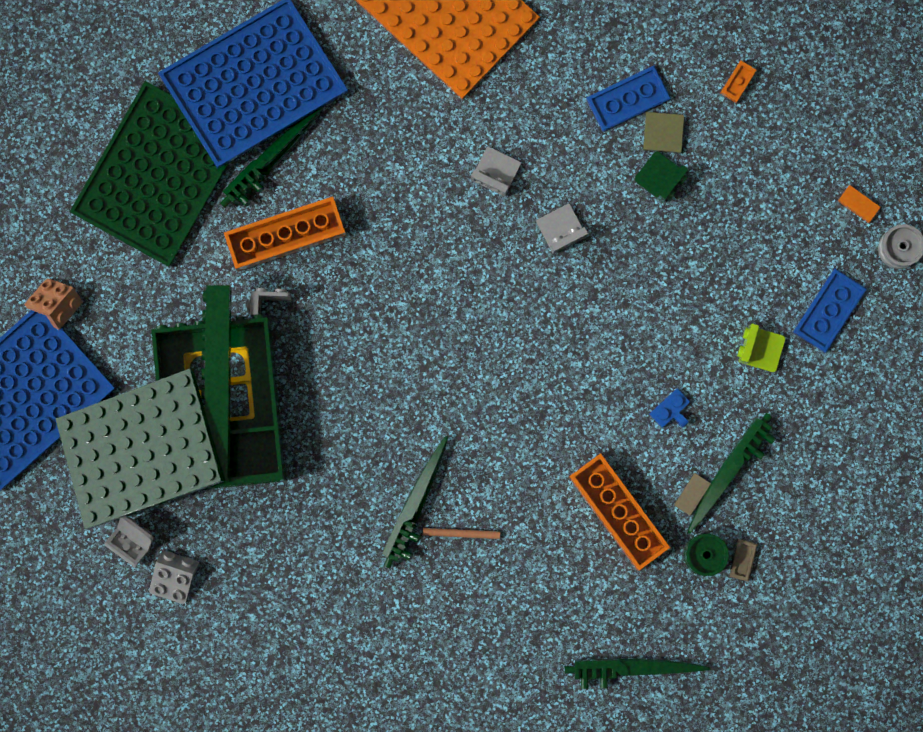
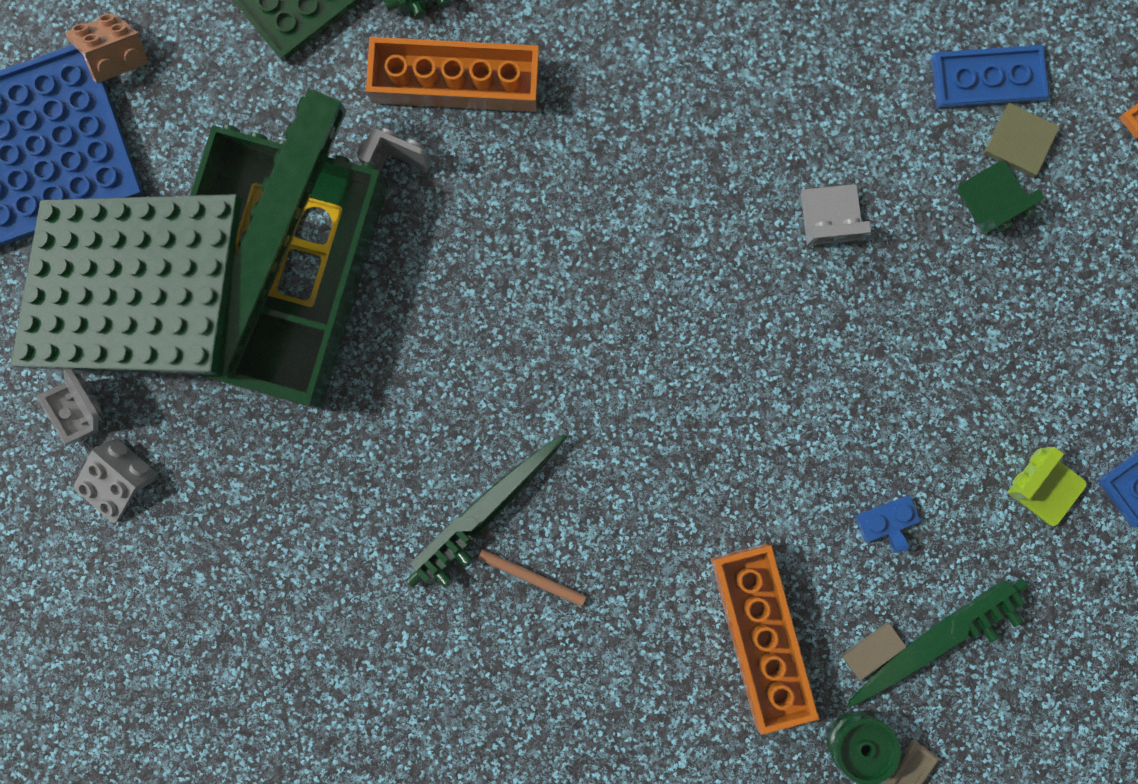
camera: 20 degrees right, 0 degrees up
(495, 171) = (772, 103): light grey bracket -> none

